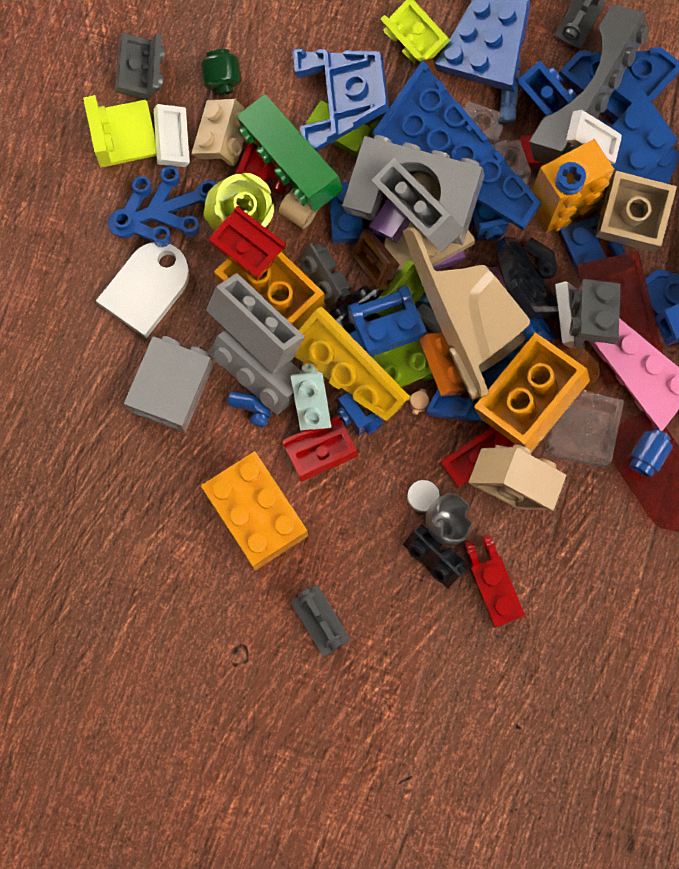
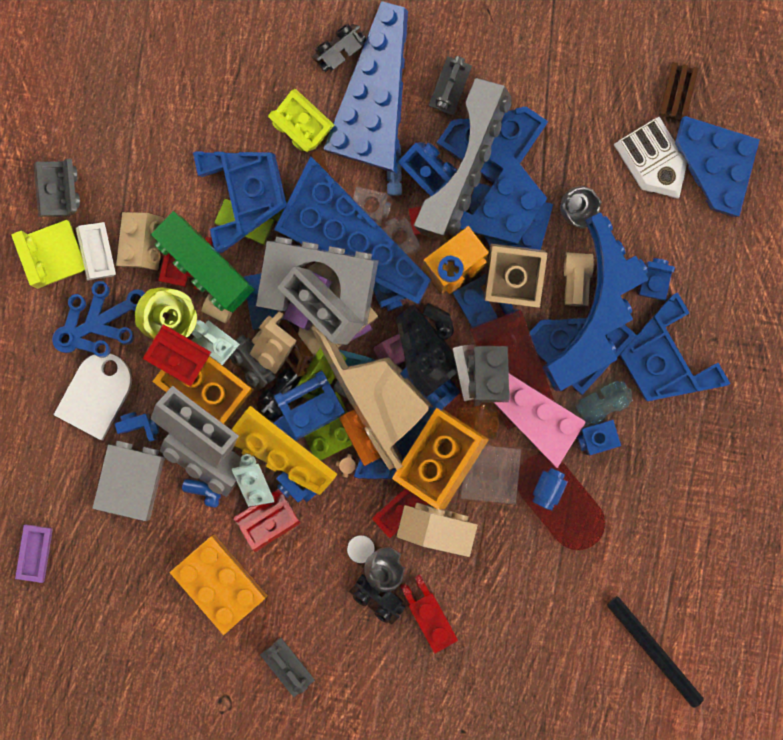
camera: 10 degrees left, 10 degrees up
(47, 451) = (34, 553): none -> medium lavender tile
(186, 320) = (133, 422): none -> blue bracket
(221, 71) = (131, 184): dark green head -> none
(296, 245) = (214, 340): none -> light aqua hinge
(354, 251) = (272, 344): none -> tan bracket
(586, 128) = (469, 213): white tile -> none

